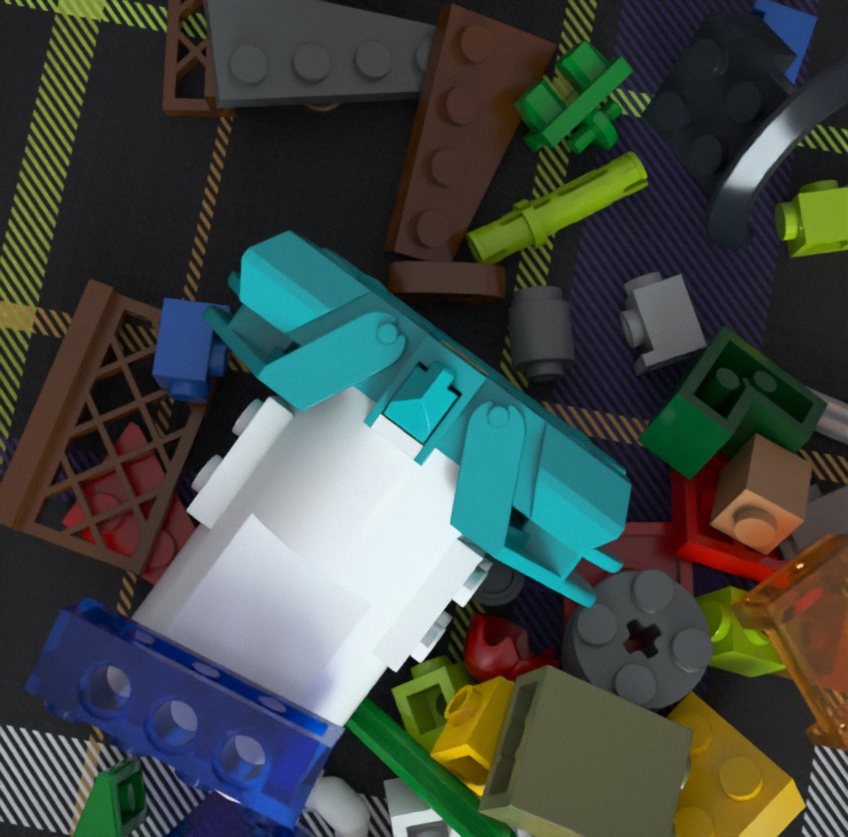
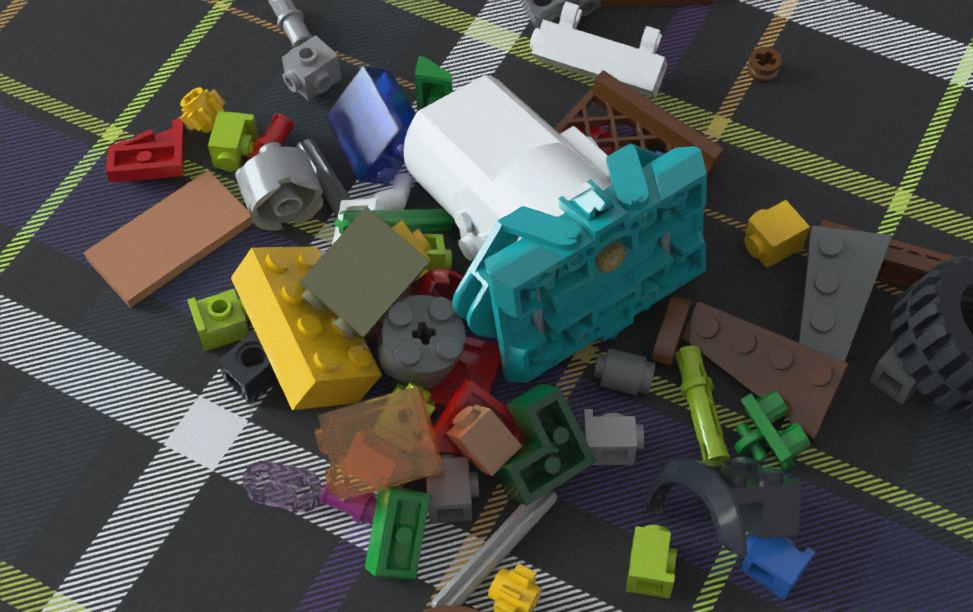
camera: 105 degrees right, 25 degrees down
(219, 170) = (775, 233): none -> yellow brick
(226, 704) = (469, 93): clear blue brick -> none

